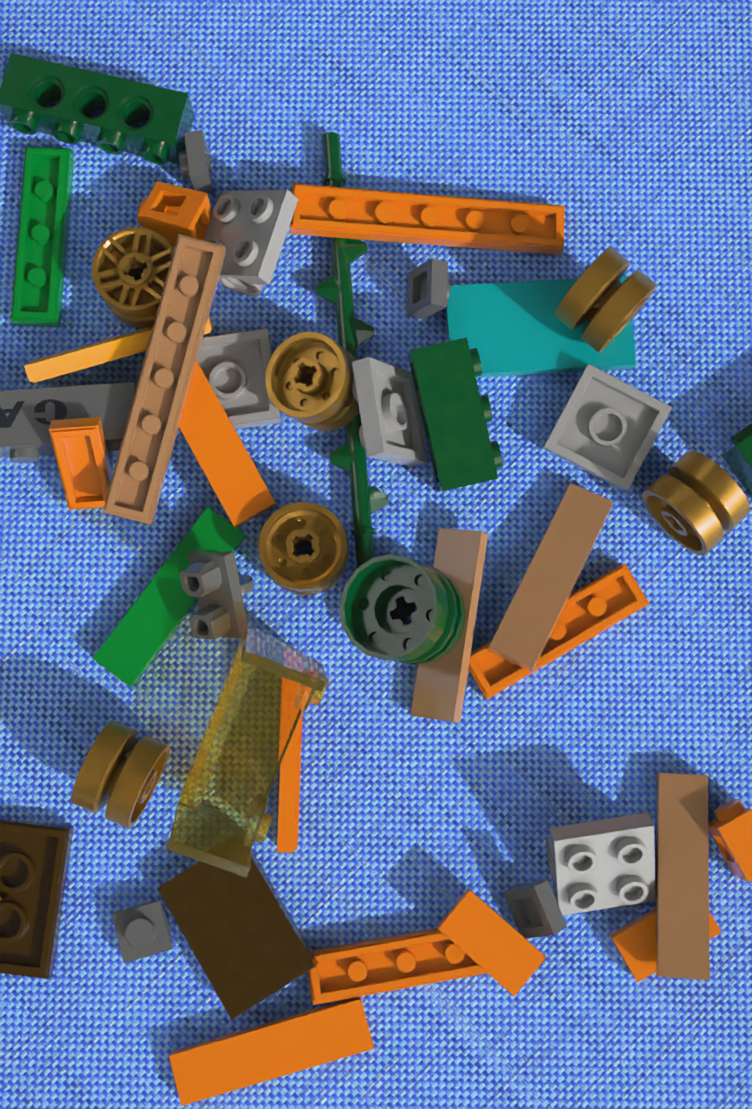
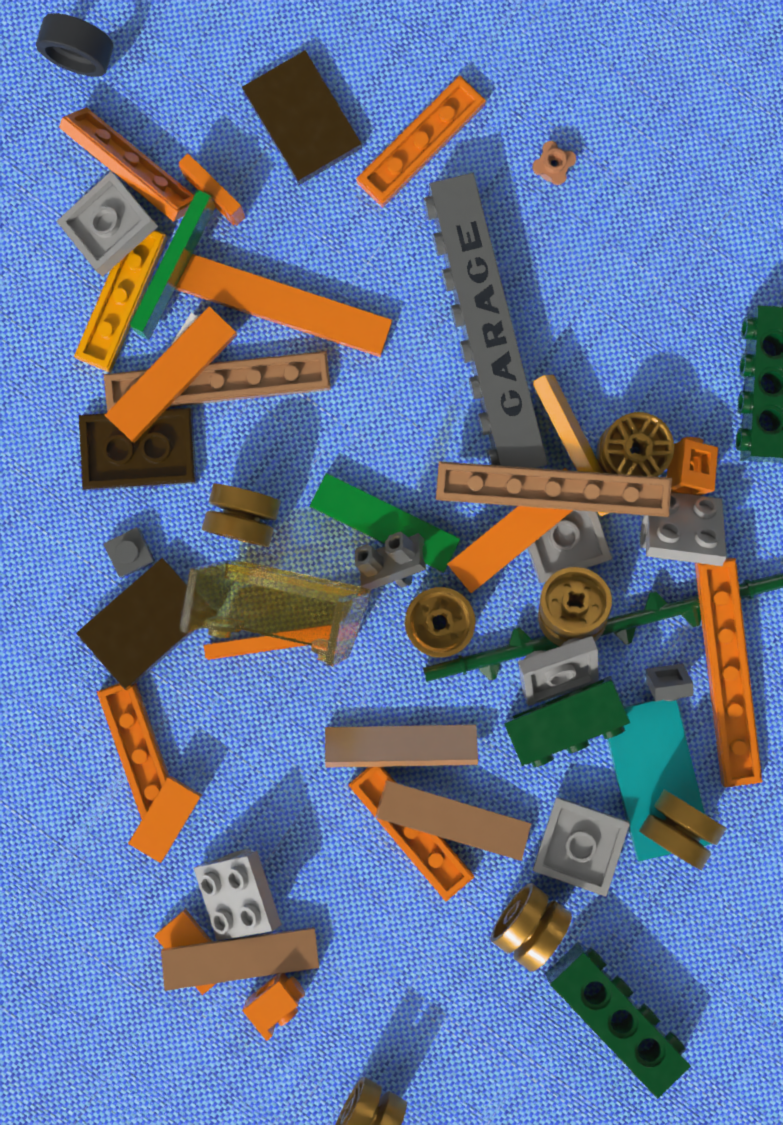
camera: 75 degrees right, 5 degrees up
(42, 237) = (657, 362): green tile -> none
(82, 461) = (476, 436): orange tile -> none
(196, 162) = (741, 474): dark grey plate -> none
(271, 1050) = (58, 666): orange tile -> none
(382, 597) = (408, 689): dark green wheel -> none
(535, 909) = (195, 848): dark grey plate -> none

